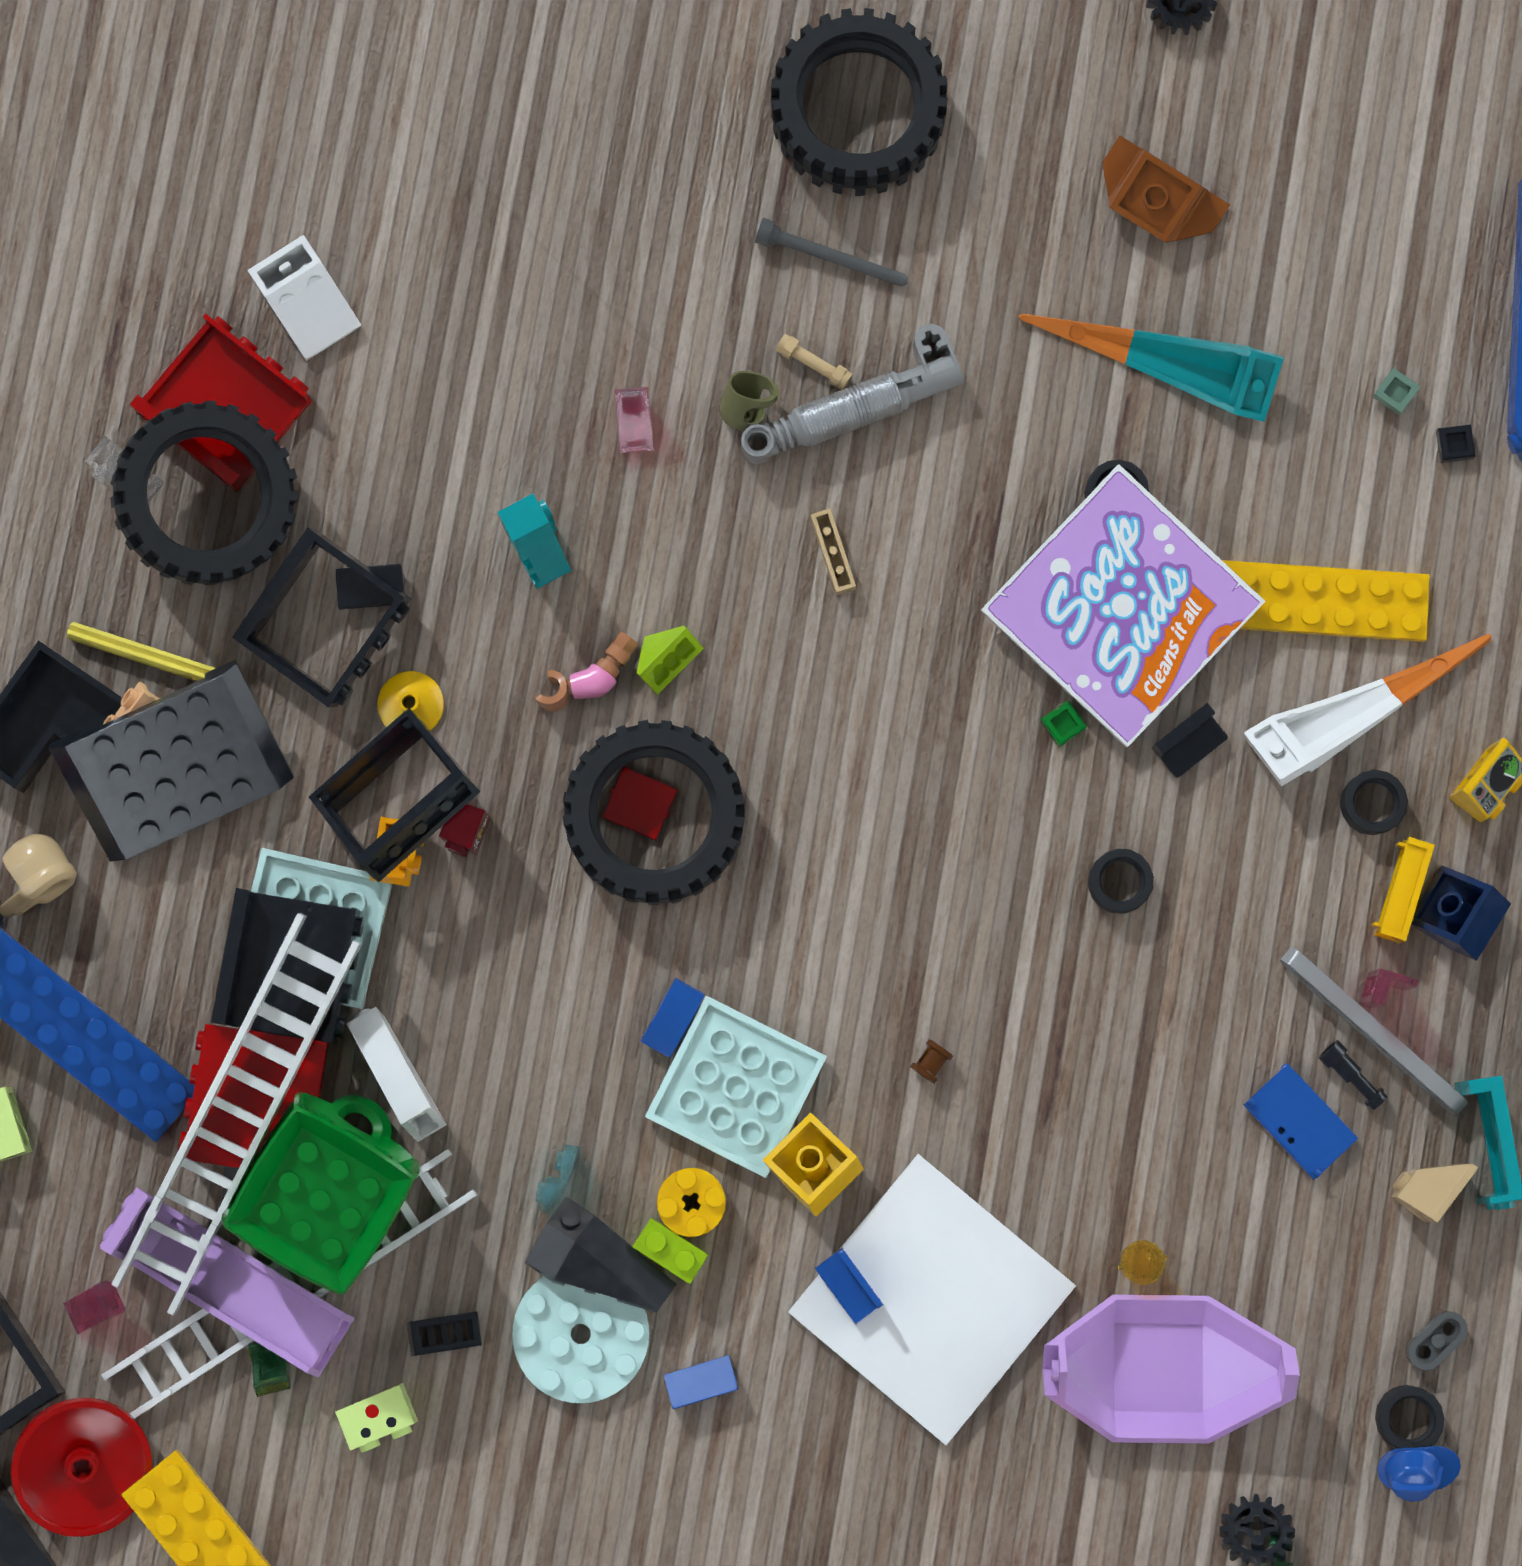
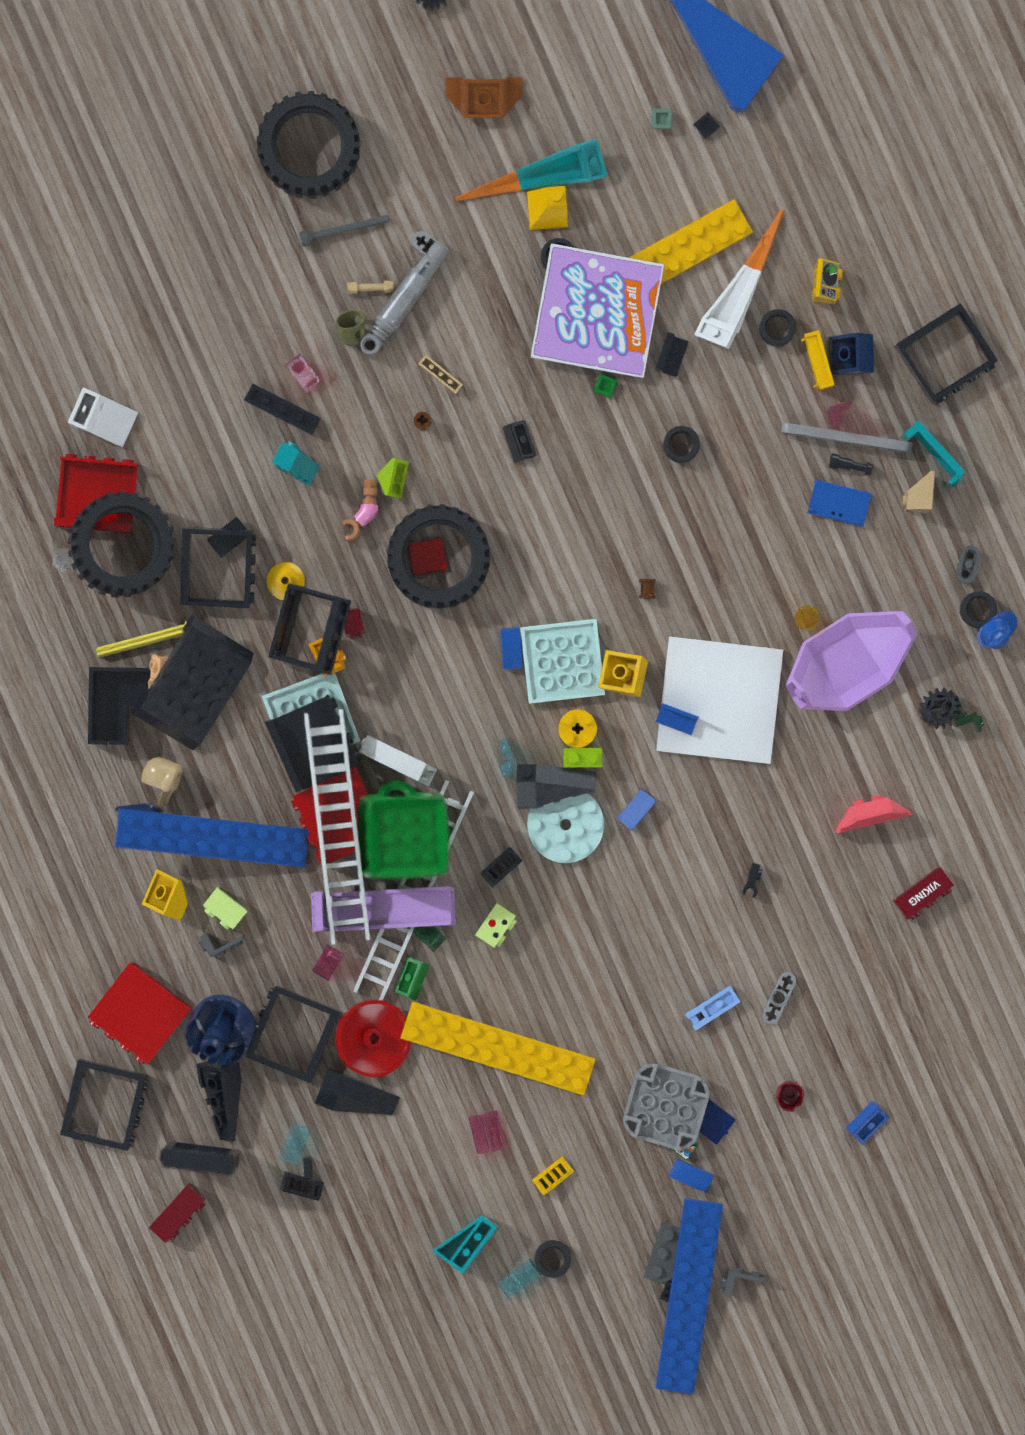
camera: 35 degrees left, 5 degrees up
(201, 1413) = (411, 978): none -> green slope
(571, 453) = (282, 409): none -> black plate
(759, 591) = (418, 417): none -> reddish brown bush
(884, 722) = (519, 441): none -> black slope
(1146, 413) = (547, 208): none -> yellow slope

